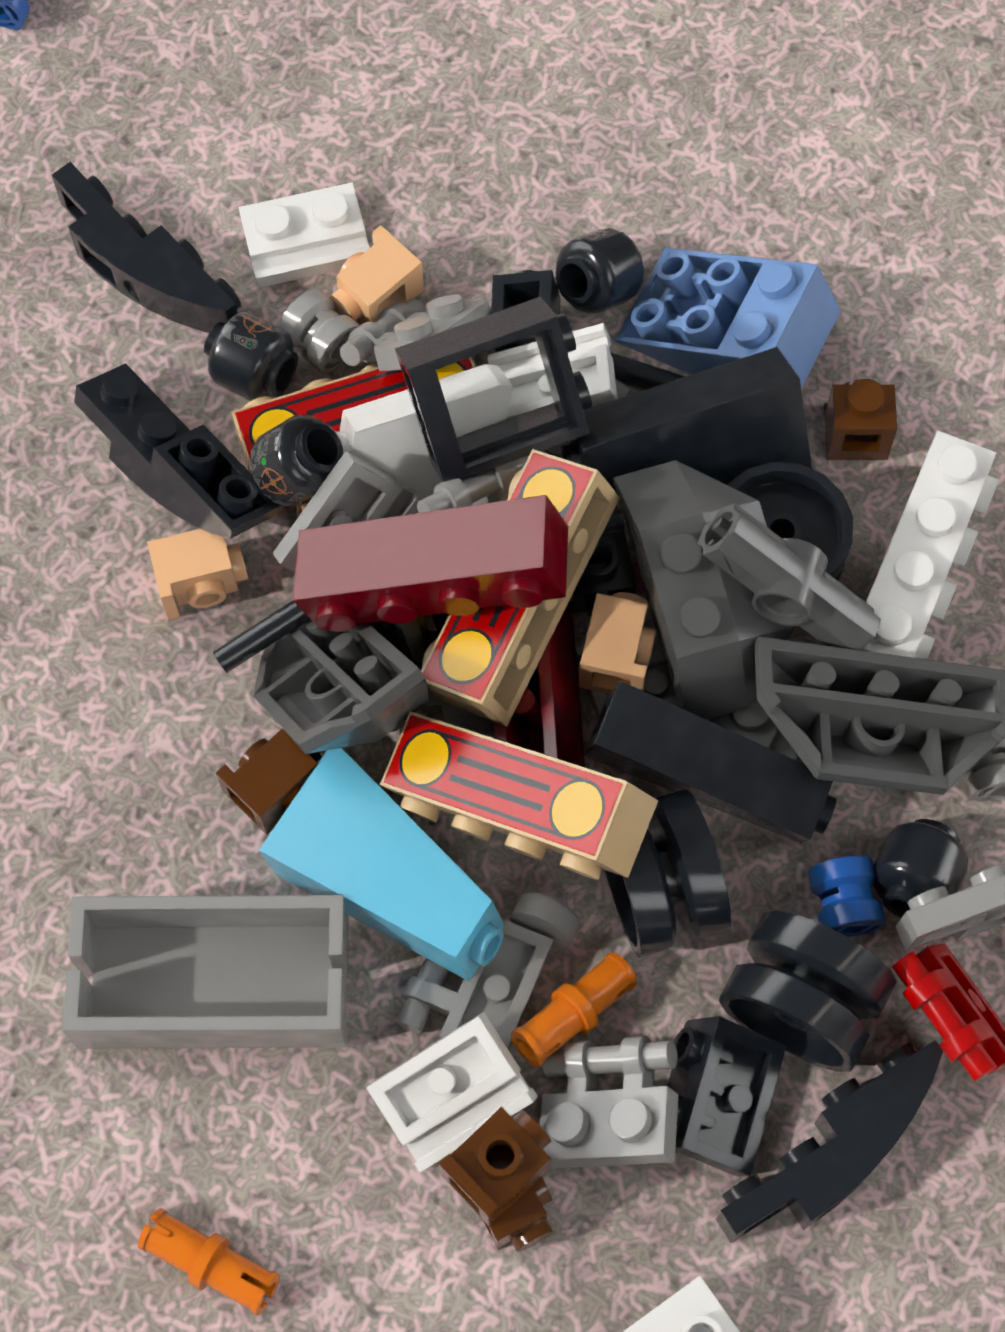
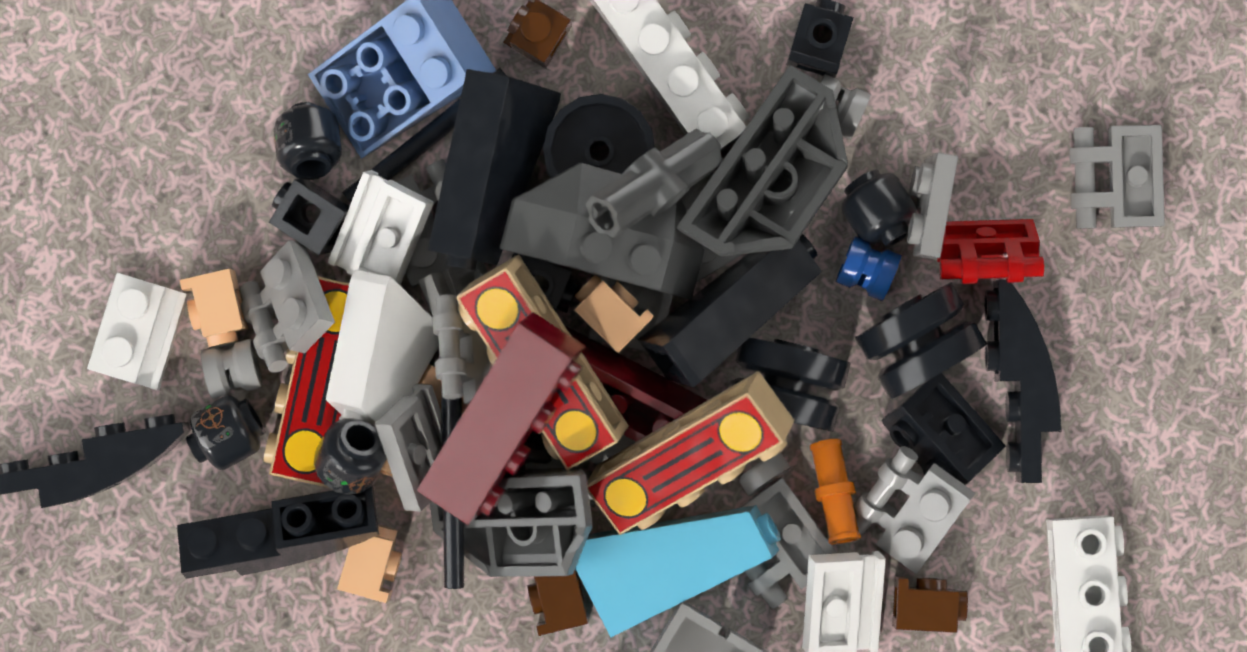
camera: 60 degrees left, 20 degrees up
(491, 1189) = (910, 628): reddish brown brick -> none
(511, 438) = (427, 302): black window -> none

